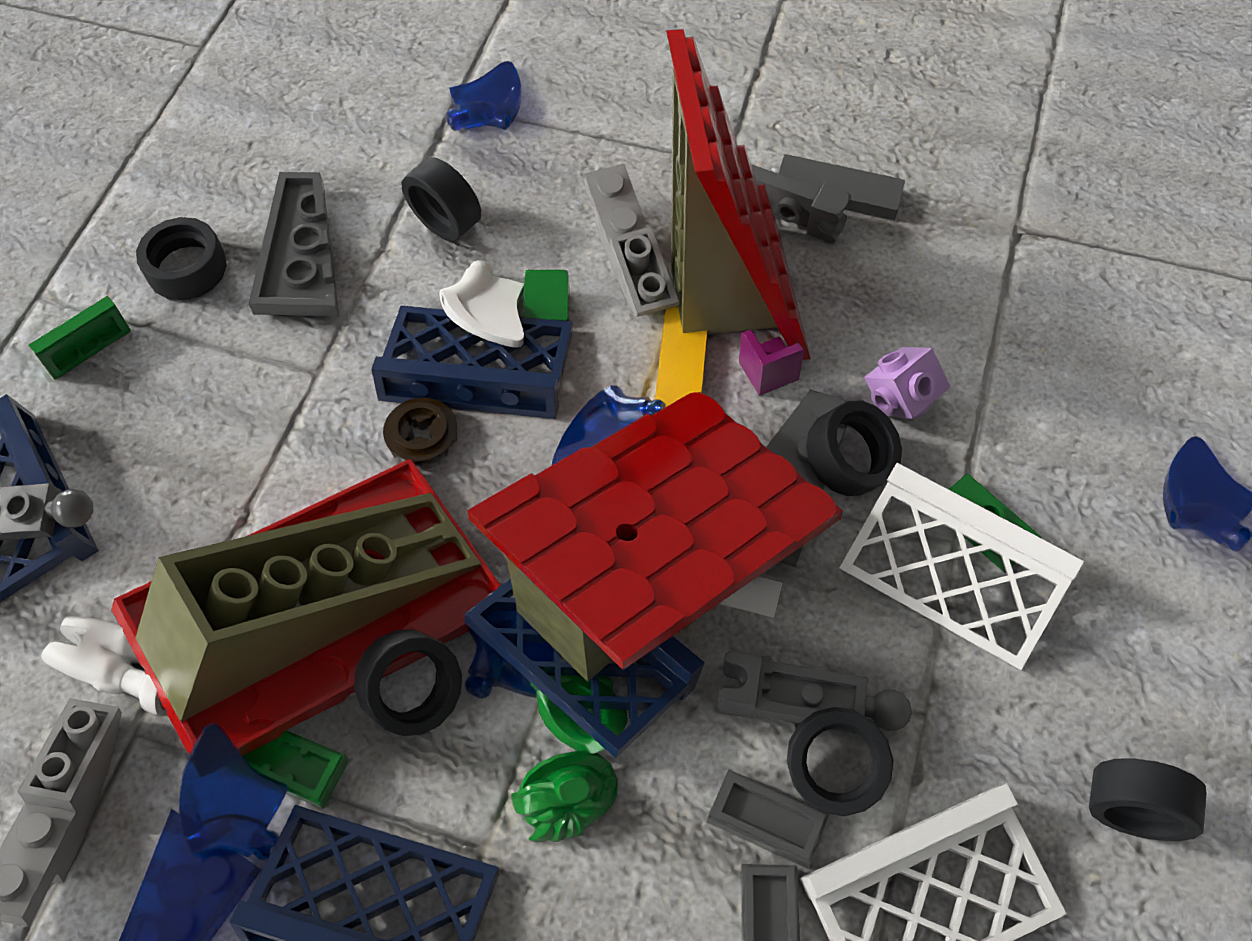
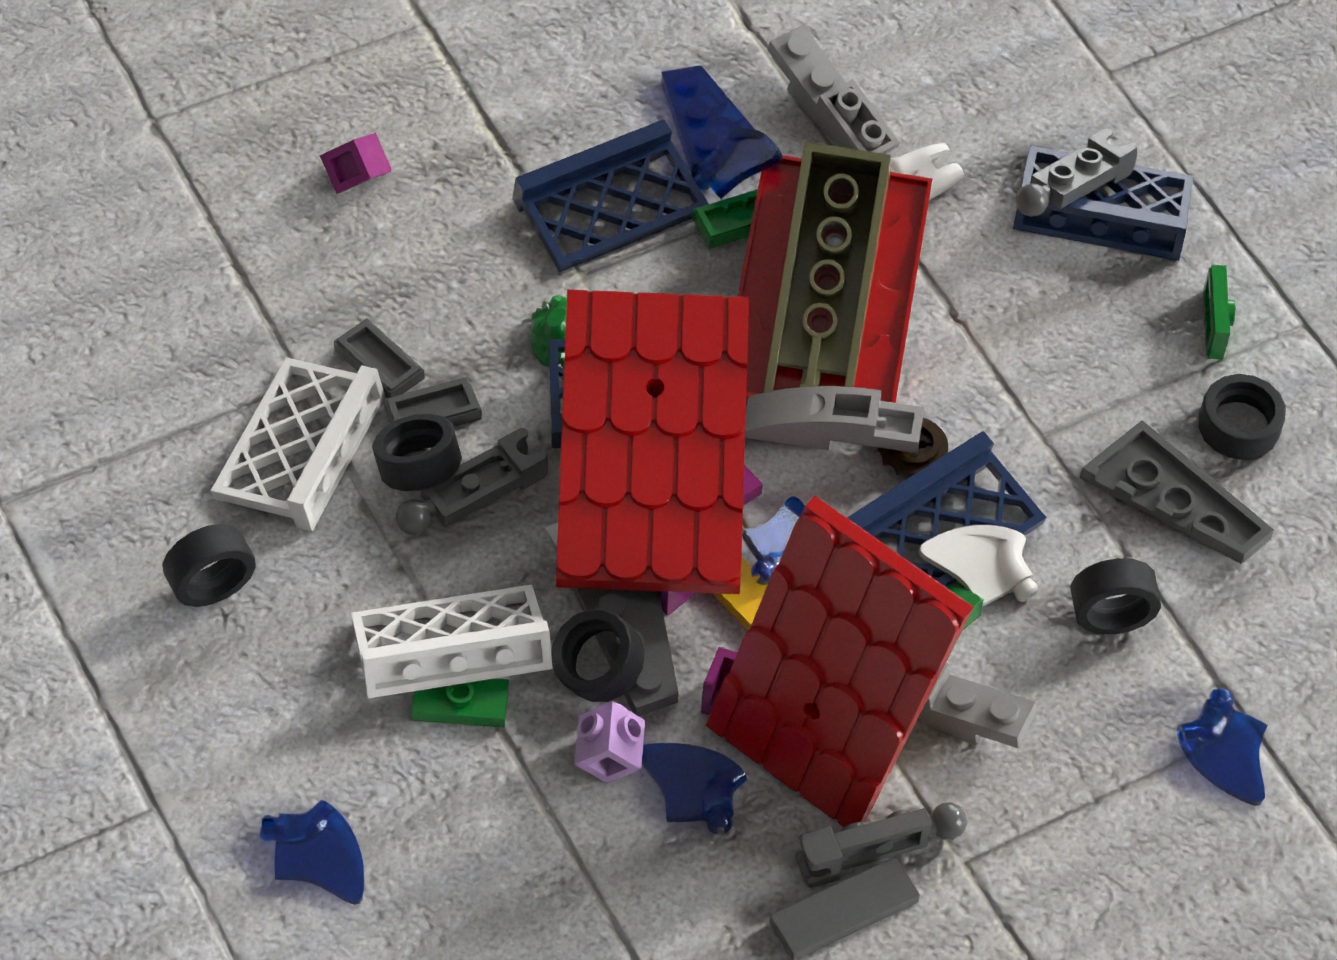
camera: 130 degrees right, 5 degrees down
(434, 708) = (712, 263): black tyre -> none
(452, 469) = (833, 413): none -> light grey slope
(859, 326) = (694, 782): none -> clear blue arm

